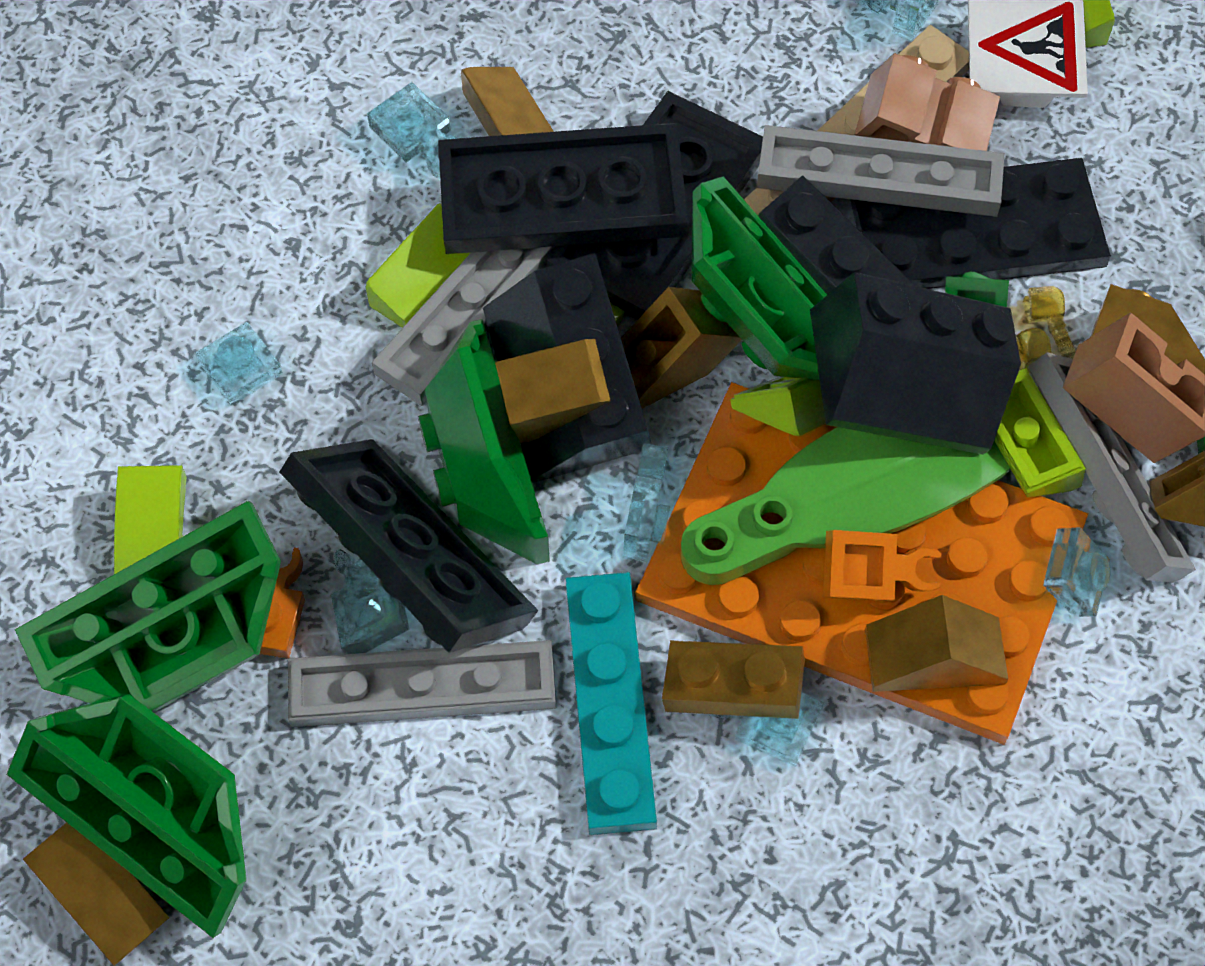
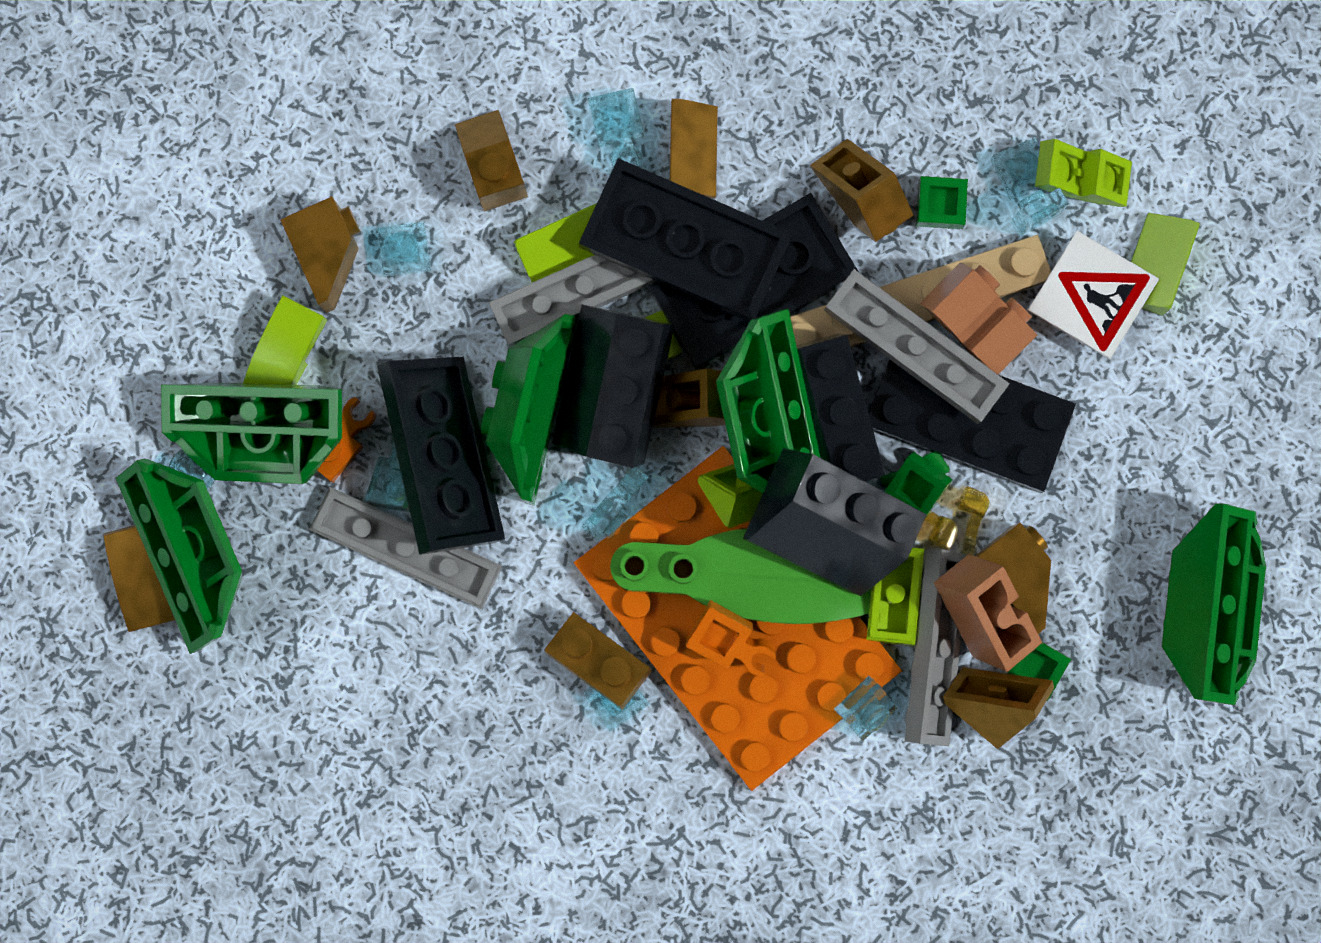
camera: 30 degrees right, 20 degrees up
(138, 398) = (324, 247): none -> pearl gold slope
(296, 226) = (491, 160): none -> pearl gold slope
(552, 387) = (580, 406): pearl gold slope -> none
(610, 704) = (517, 625): teal plate -> none
(723, 63) = (863, 189): none -> pearl gold slope
(811, 41) = (941, 202): none -> green plate
(936, 647) = (736, 716): pearl gold slope -> none

